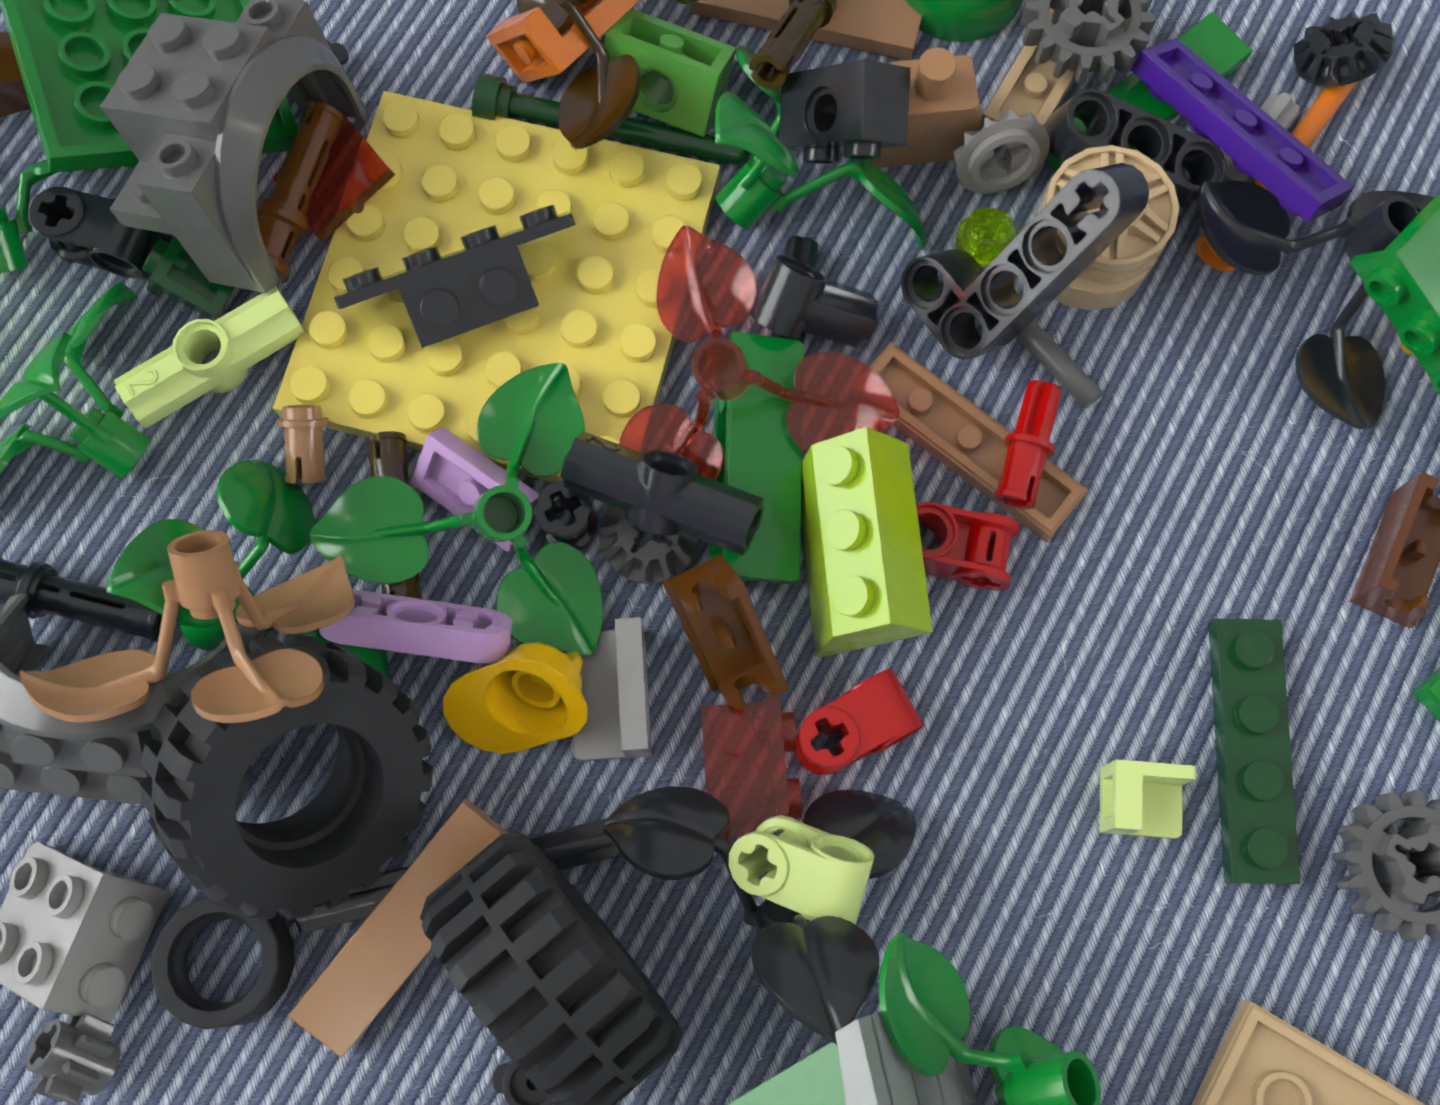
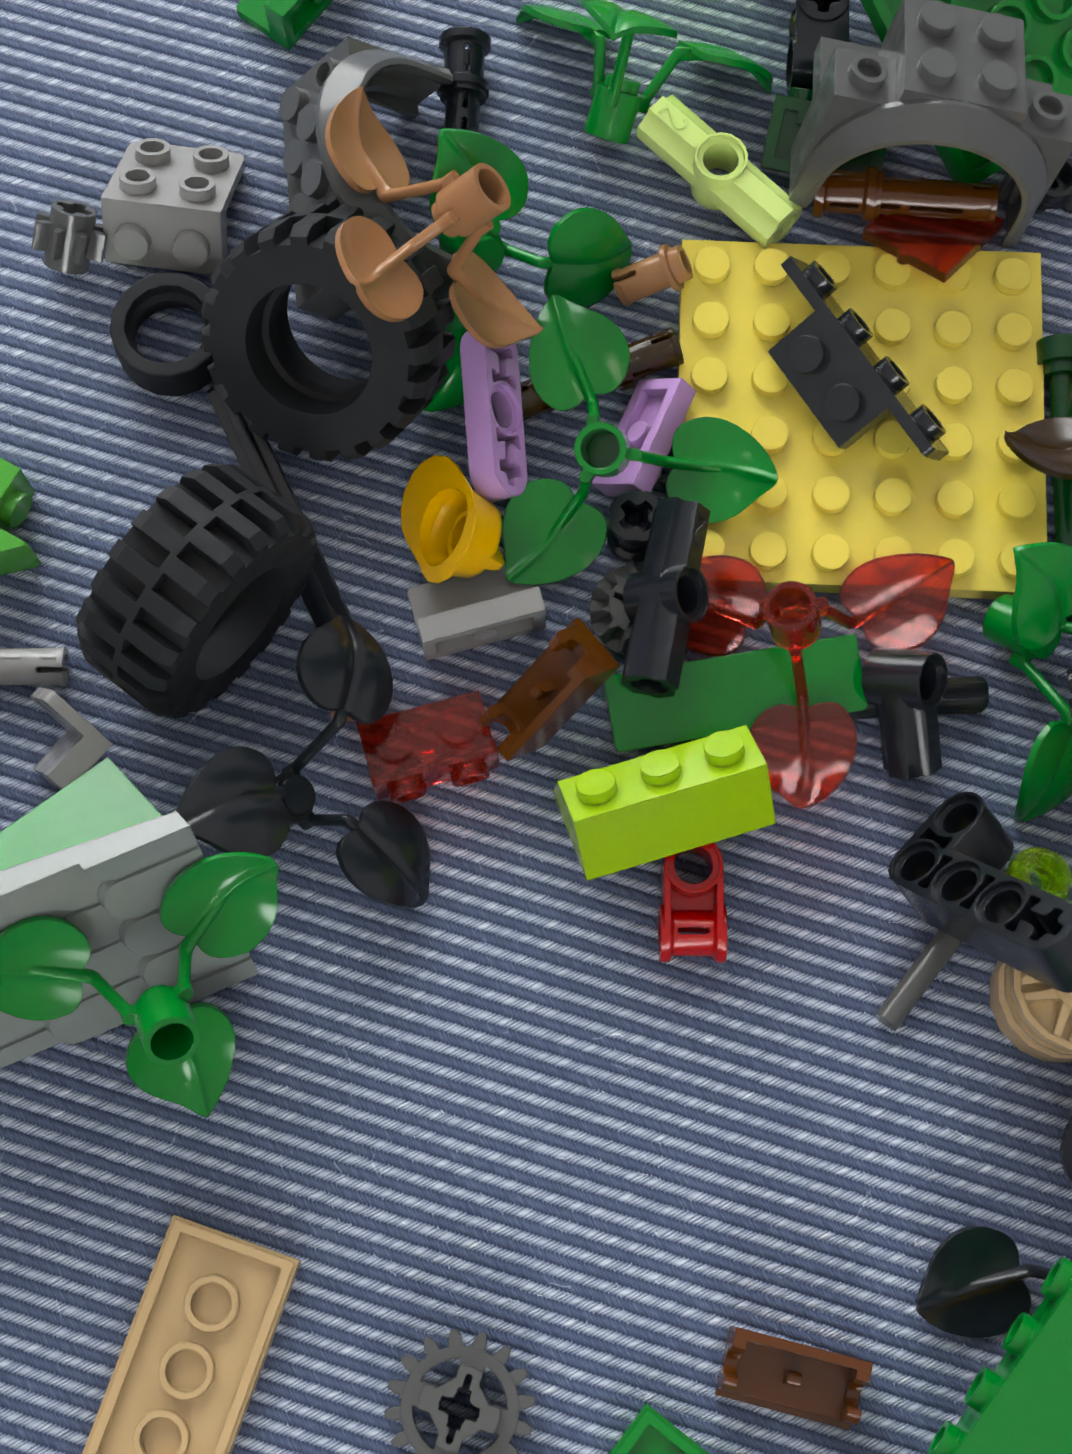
camera: 75 degrees right, 0 degrees up
(390, 938) = (175, 447): medium nougat tile -> none
(804, 868) = (332, 795): yellowish green piece -> none
(865, 719) = (496, 846): red piece -> none
(969, 440) = (808, 903): medium nougat tile -> none
(1029, 446) = (811, 952): red axle -> none
(1143, 798) = (473, 1129): yellowish green panel -> none
(1253, 752) = (548, 1236): dark green plate -> none

